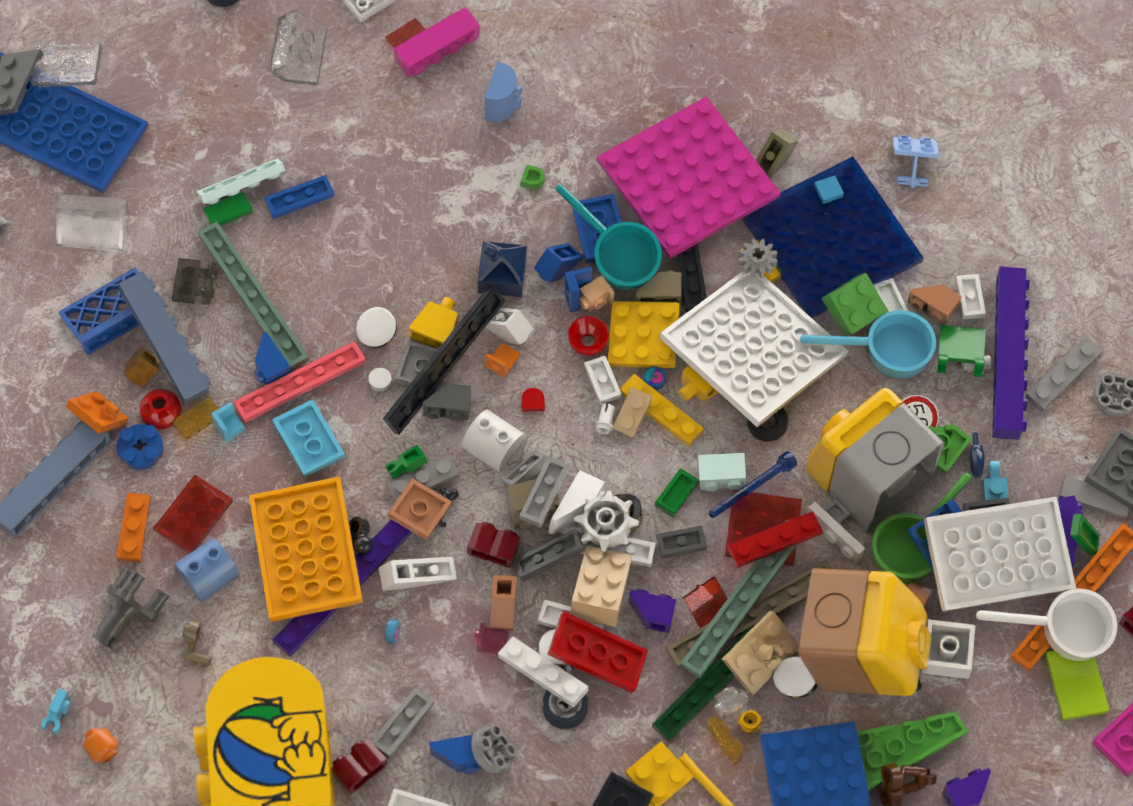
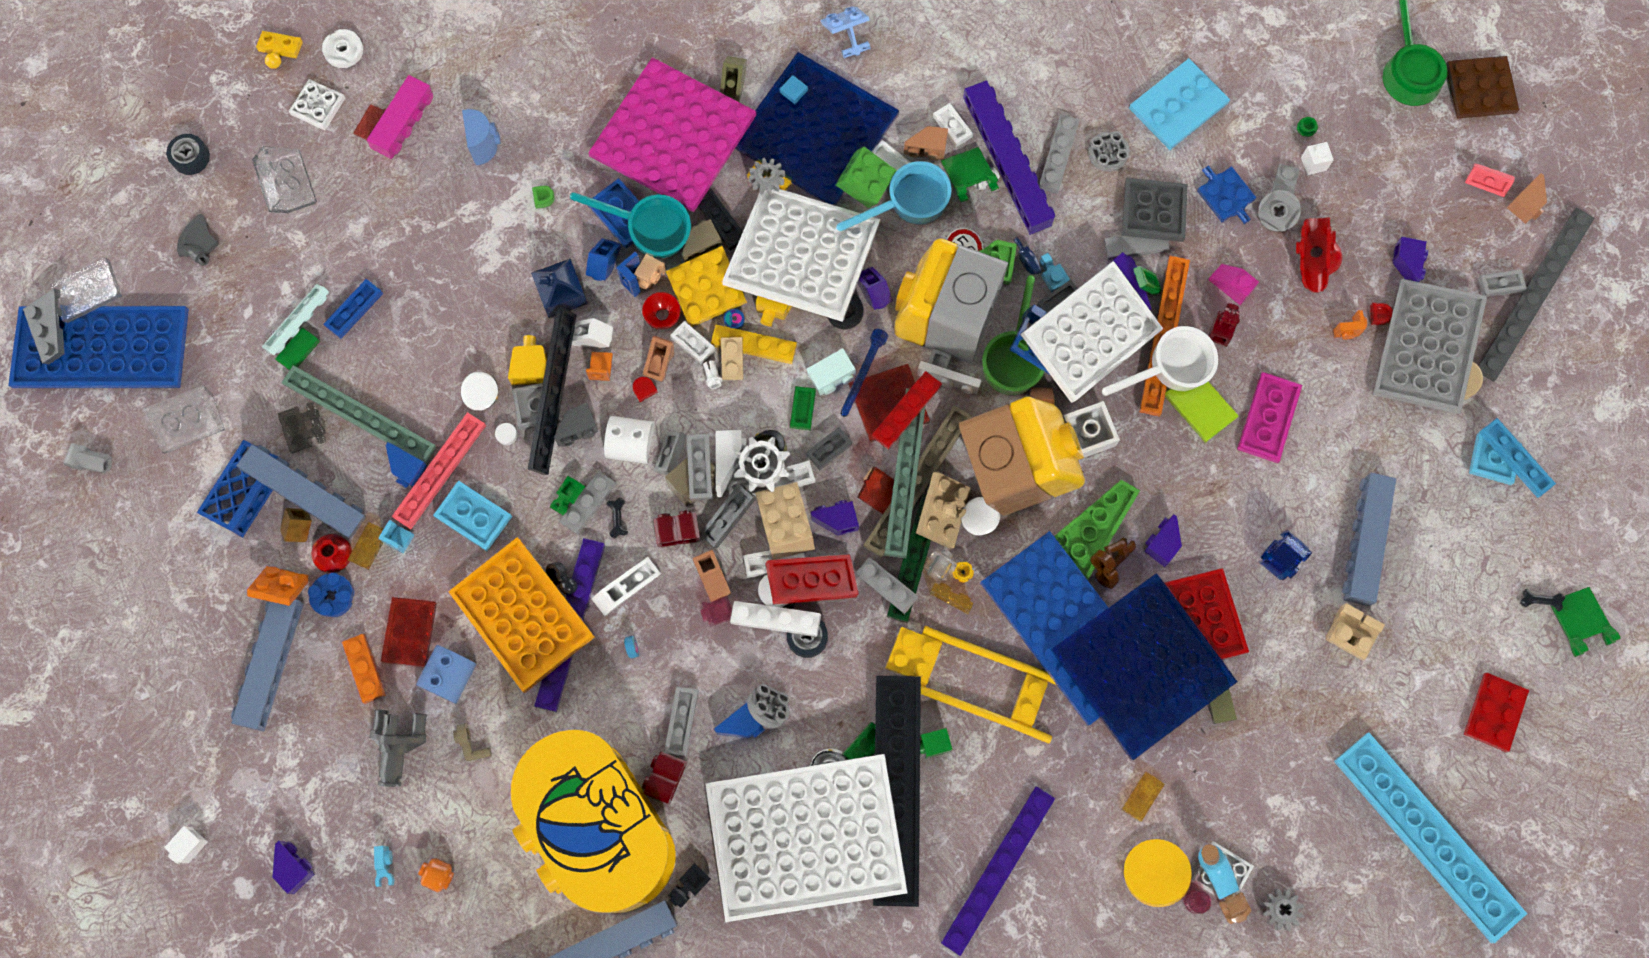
camera: 25 degrees left, 10 degrees up
(188, 68) = (196, 241): none -> dark grey arm
(419, 509) = (599, 531): nougat plate -> none
(562, 376) = (658, 358): none -> nougat slope
(667, 695) = (887, 585): none -> light grey plate
(807, 413) = (874, 288): none -> dark purple slope

